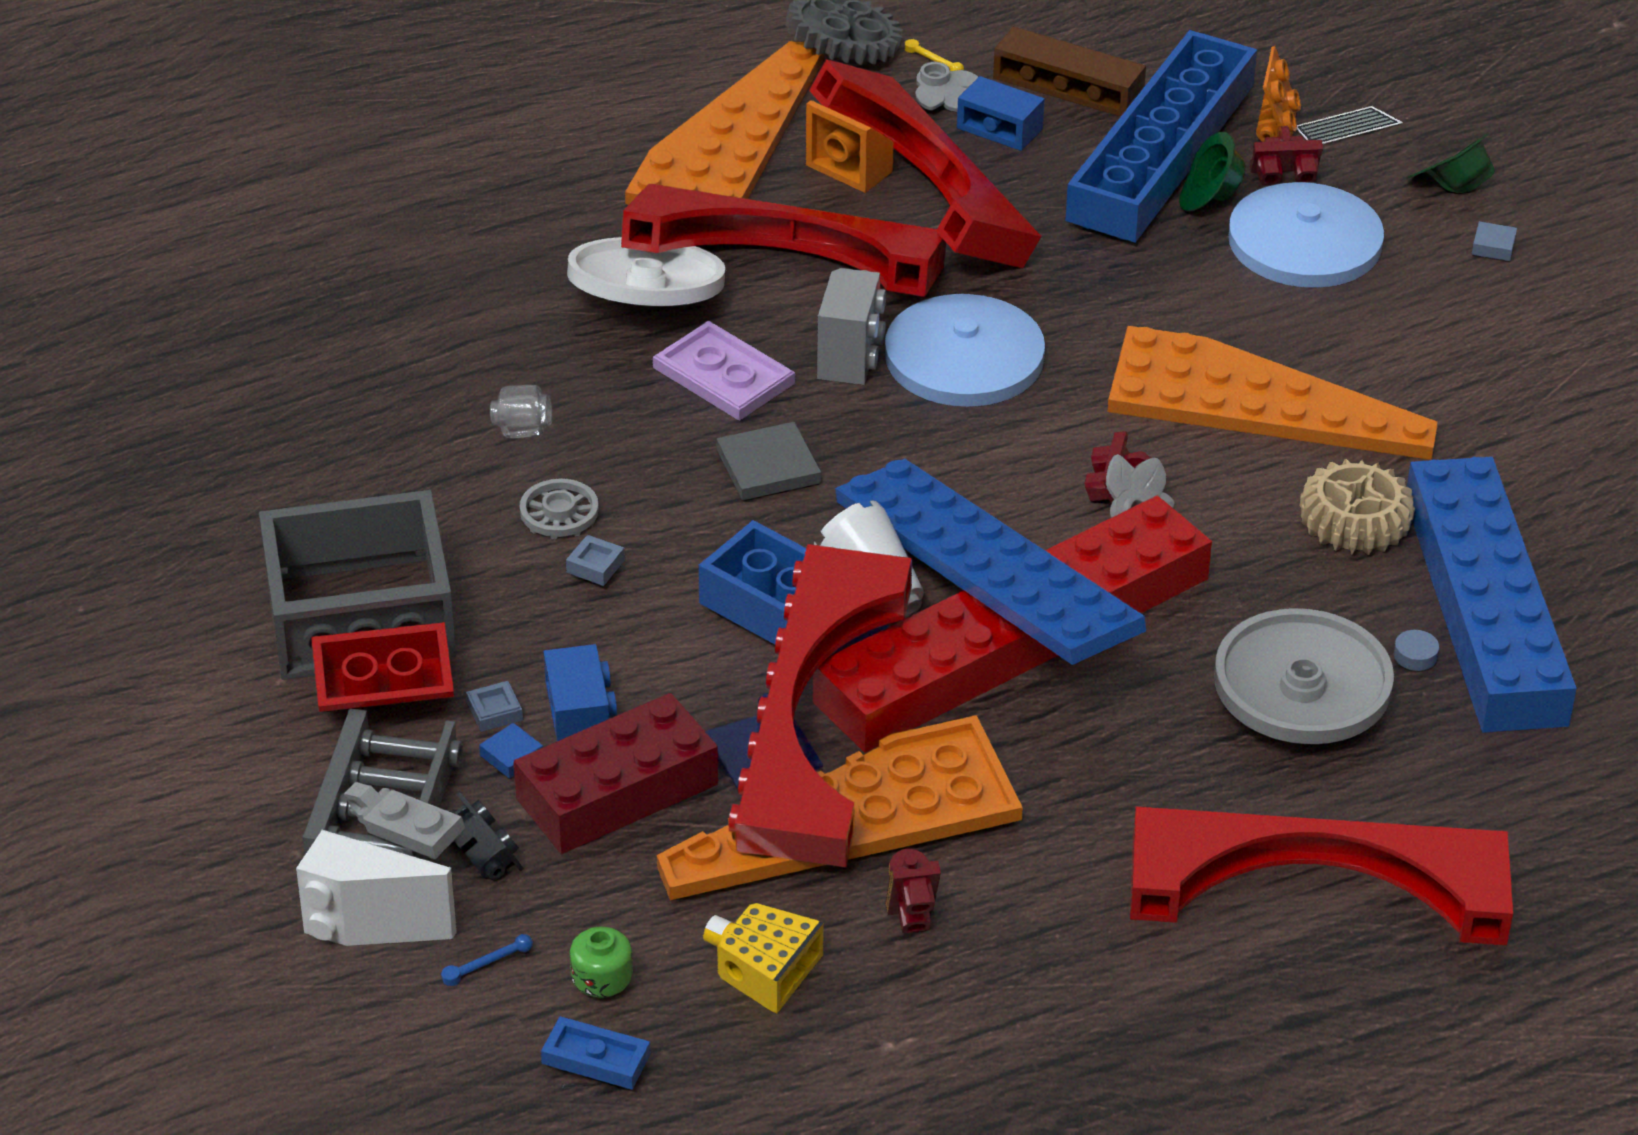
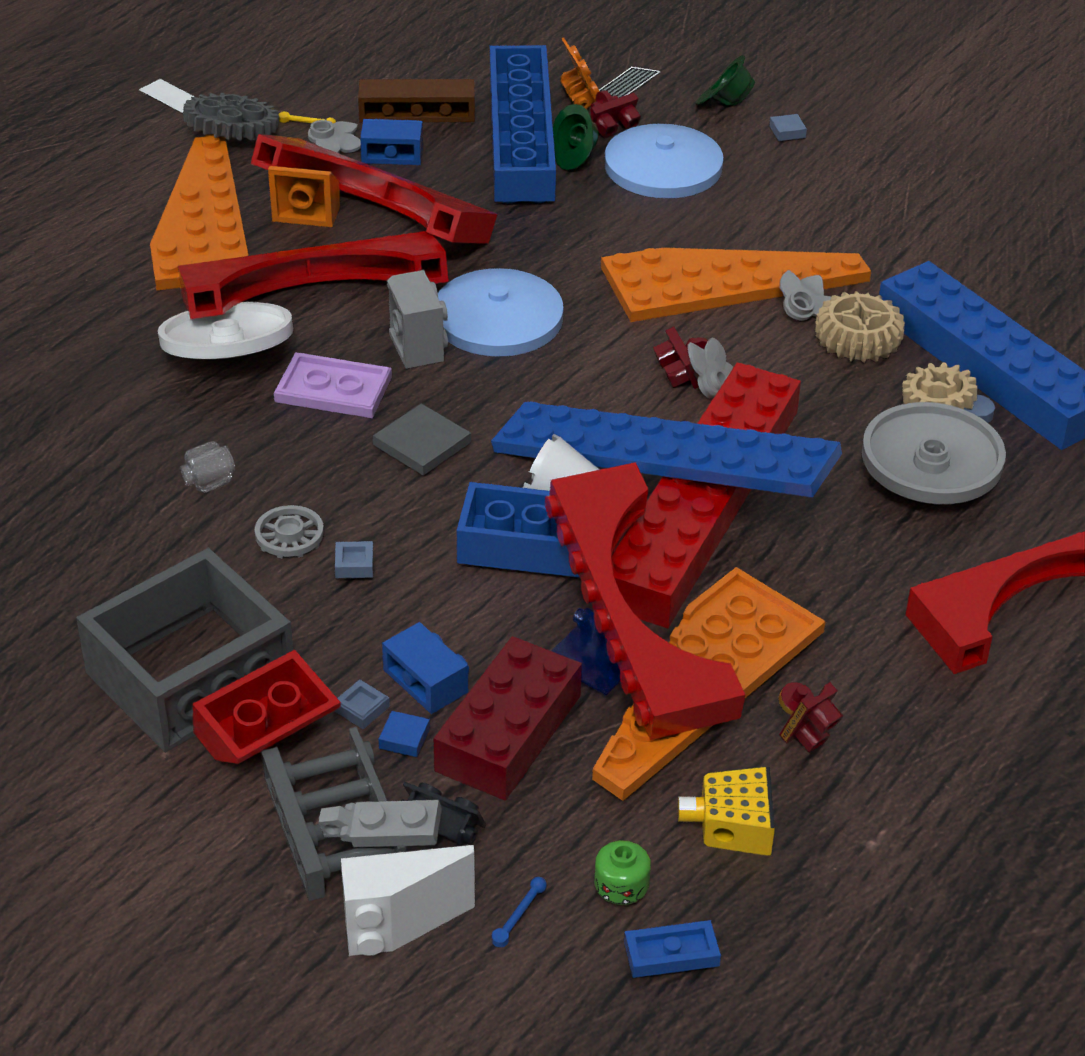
camera: 30 degrees left, 0 degrees up
(1323, 445) = (802, 296): none -> light grey plate
(1386, 609) = (941, 386): none -> tan gear

